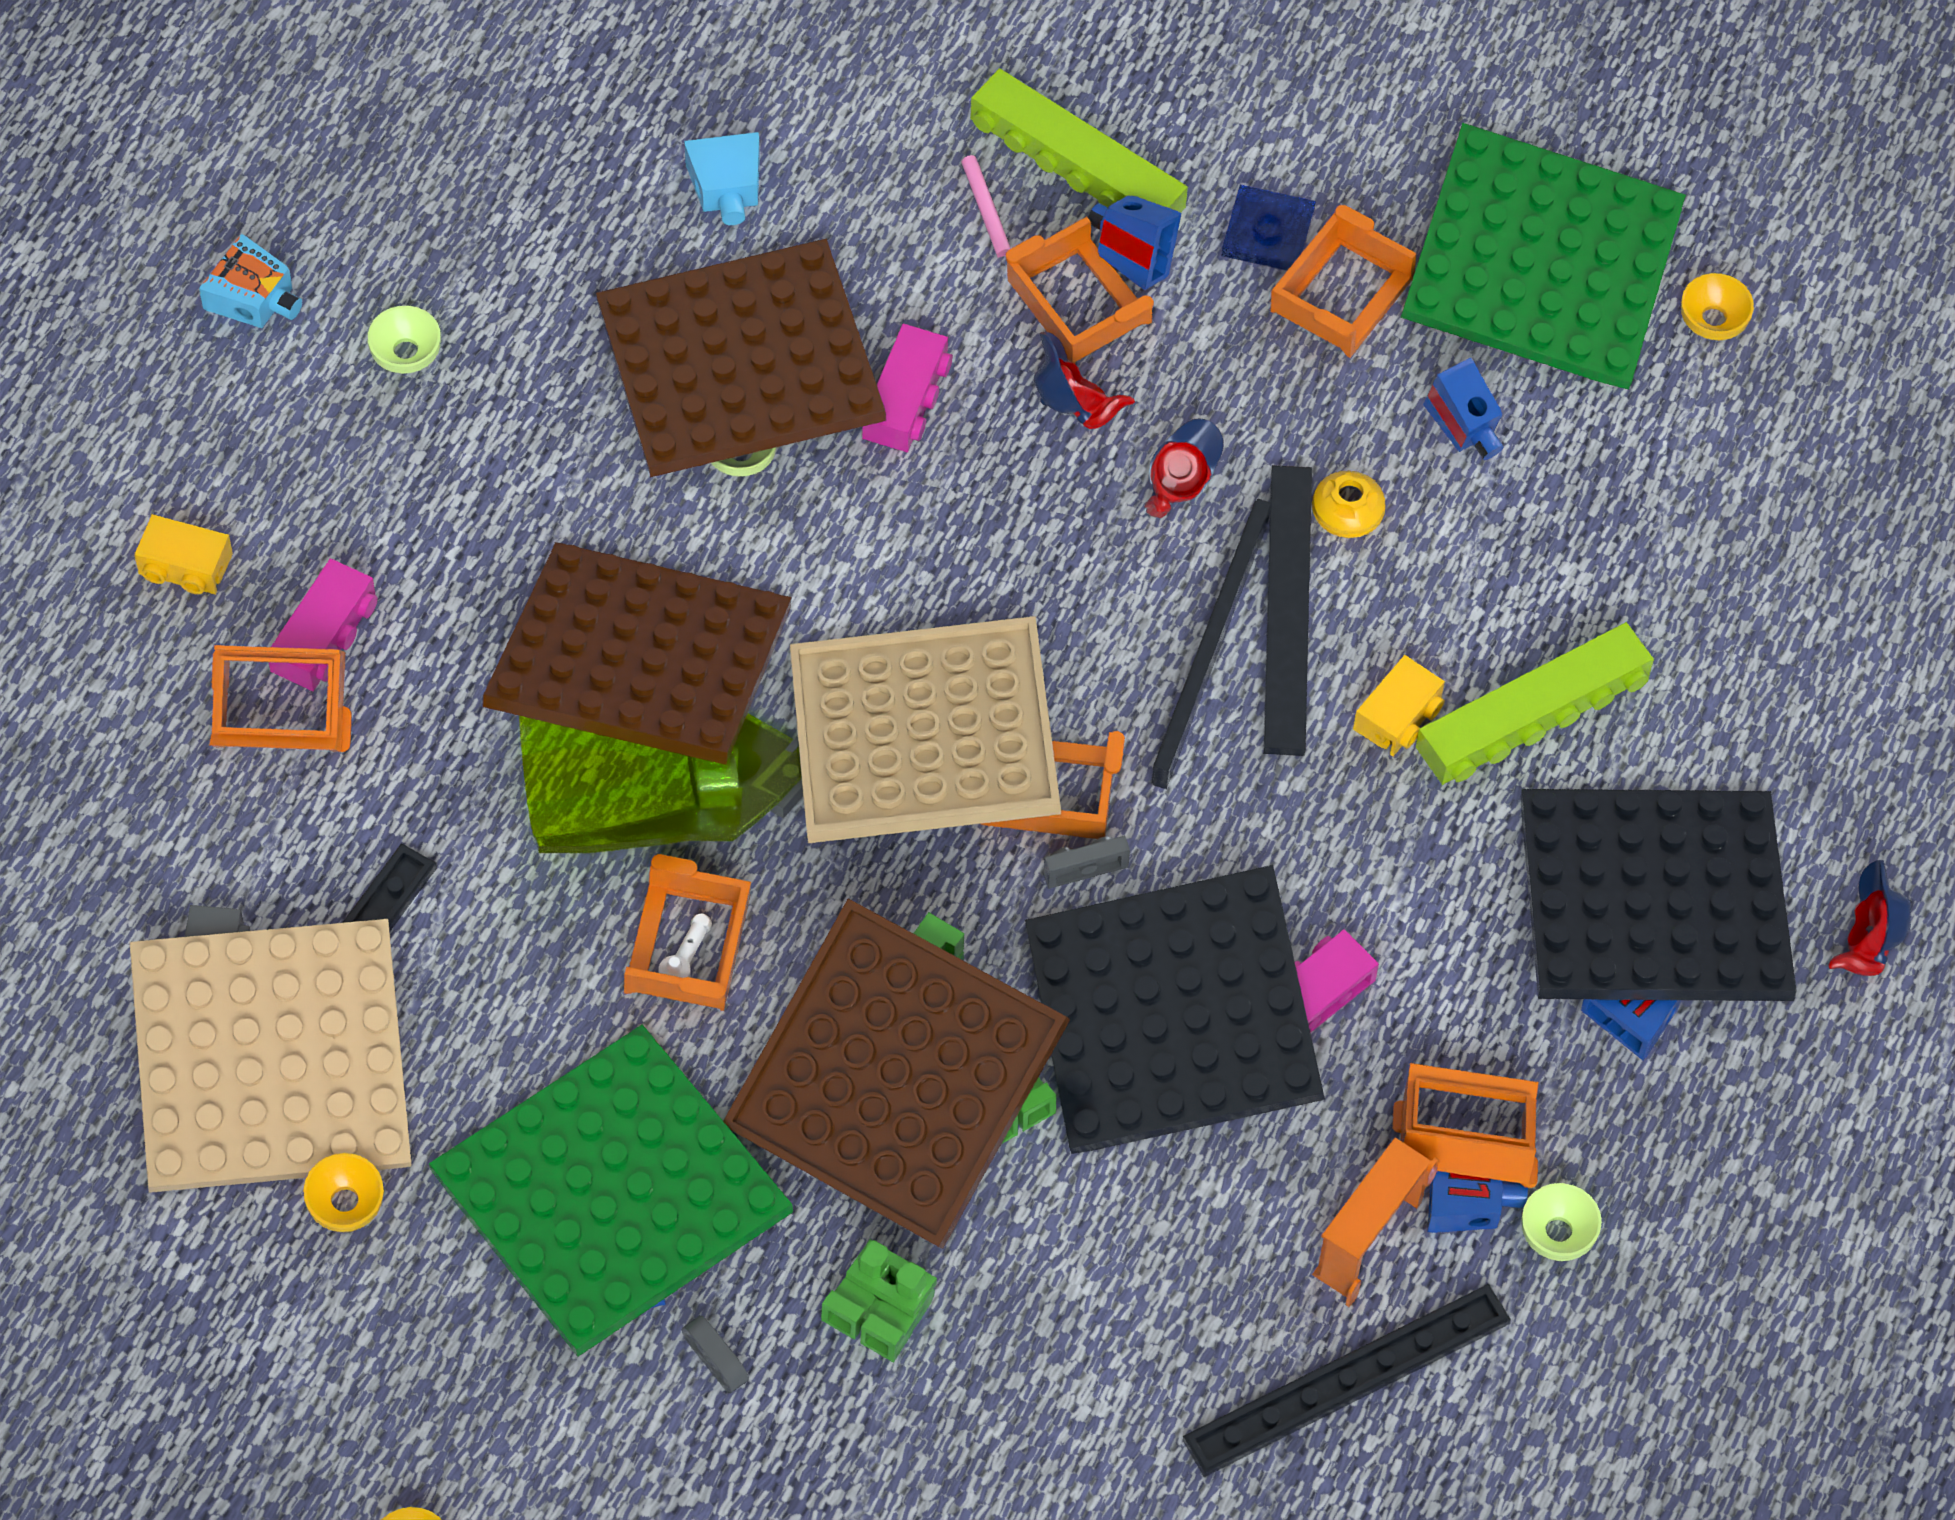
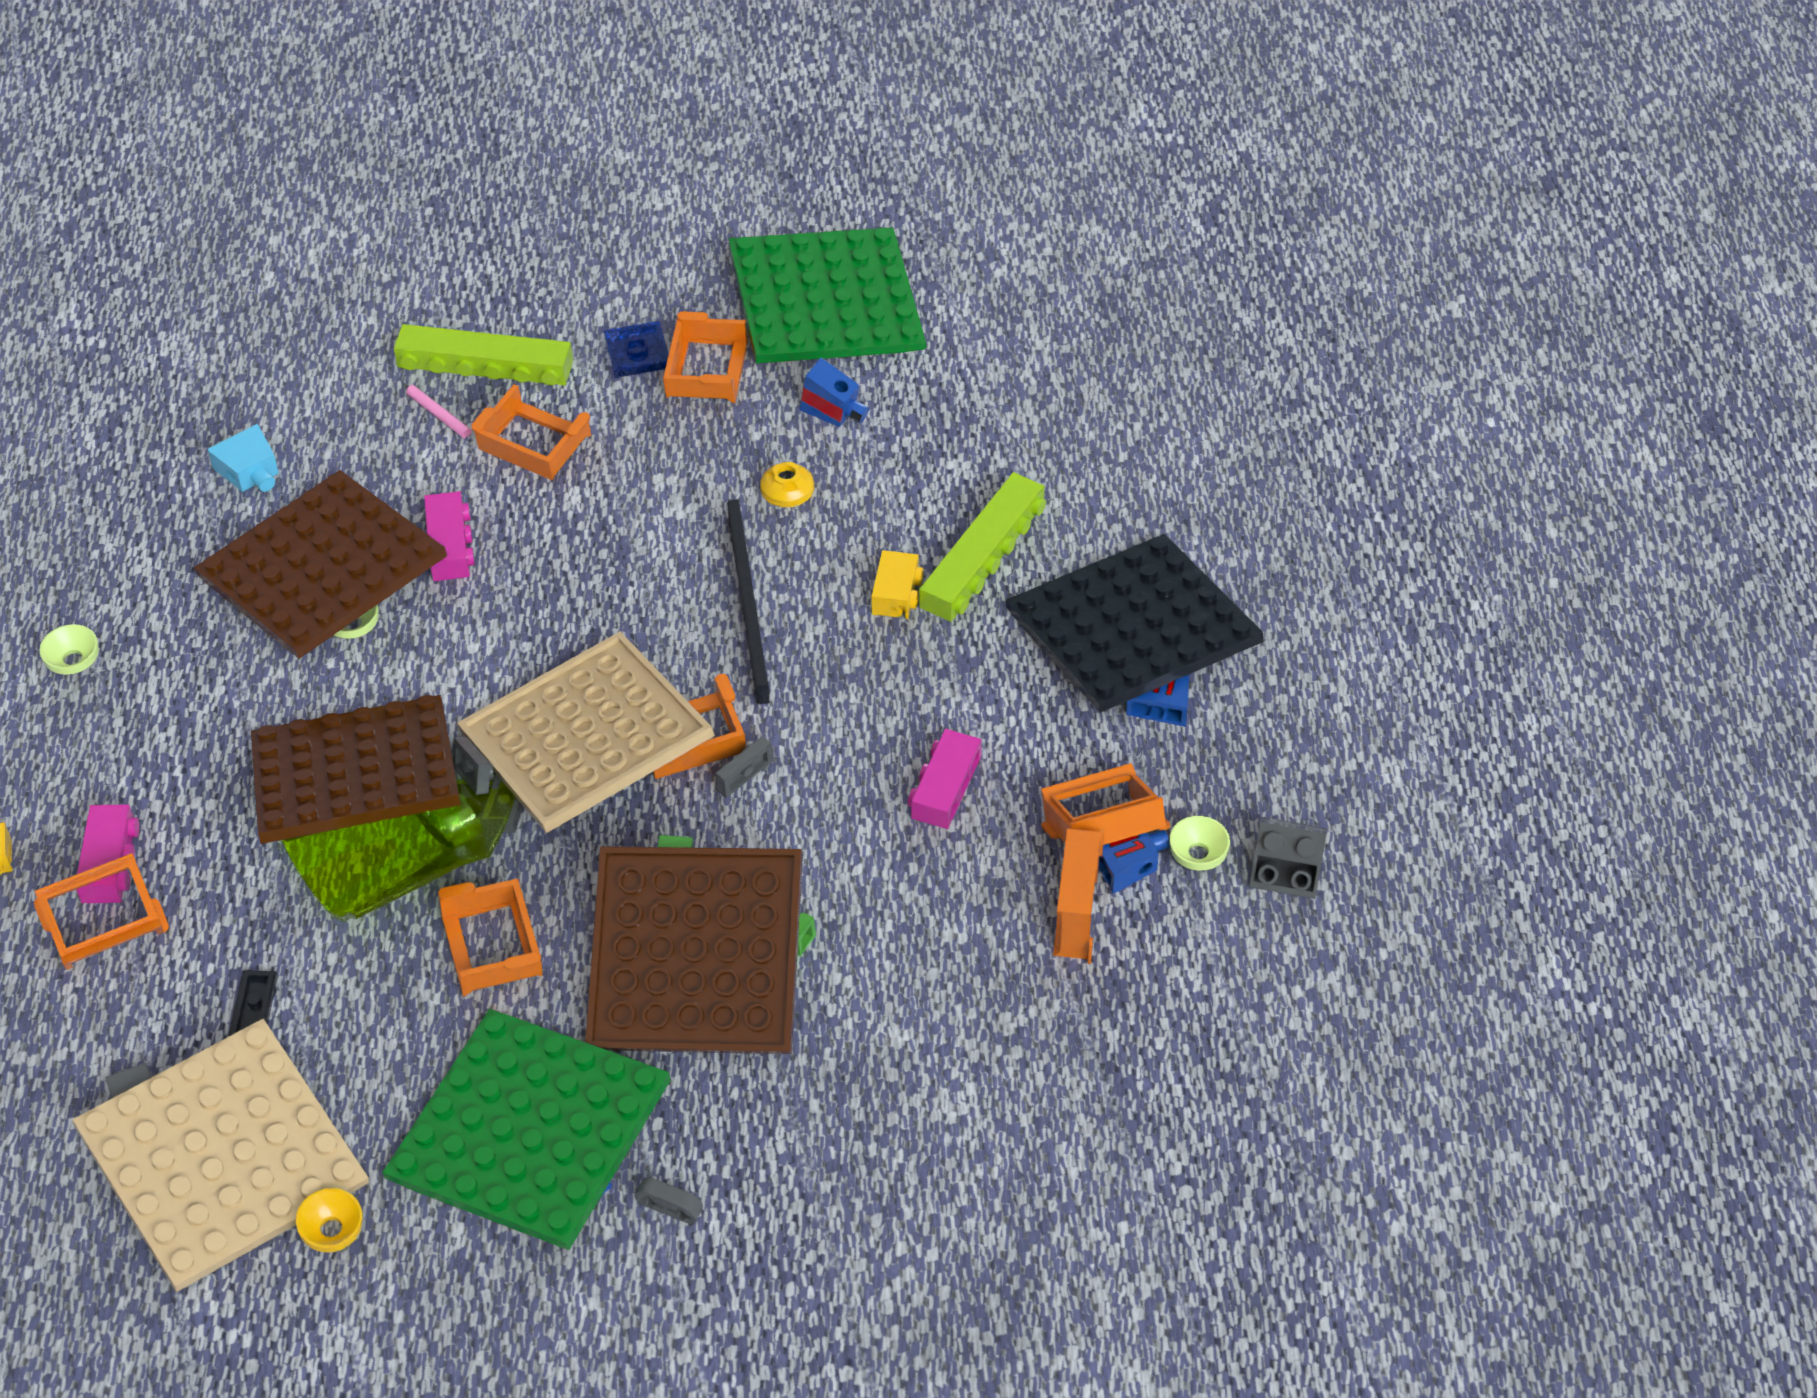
camera: 25 degrees left, 10 degrees down
(679, 964) = (494, 928): white piece -> none
(775, 708) = (472, 765): none -> dark grey plate
(881, 1299) = (767, 1103): bright green hips -> none
(1069, 393) = (562, 494): hair -> none
(1137, 238) = (554, 384): blue torso -> none
(1175, 1010) = (870, 826): black plate -> none
(1183, 465) = (666, 502): red hair -> none
(1287, 611) = (787, 564): black tile -> none
(1345, 1380) = (1117, 1012): black tile -> none
(1658, 1291) = (1288, 857): none -> dark grey slope
(1717, 293) = (953, 271): yellow piece -> none
(1887, 914) = (1280, 569): hair -> none

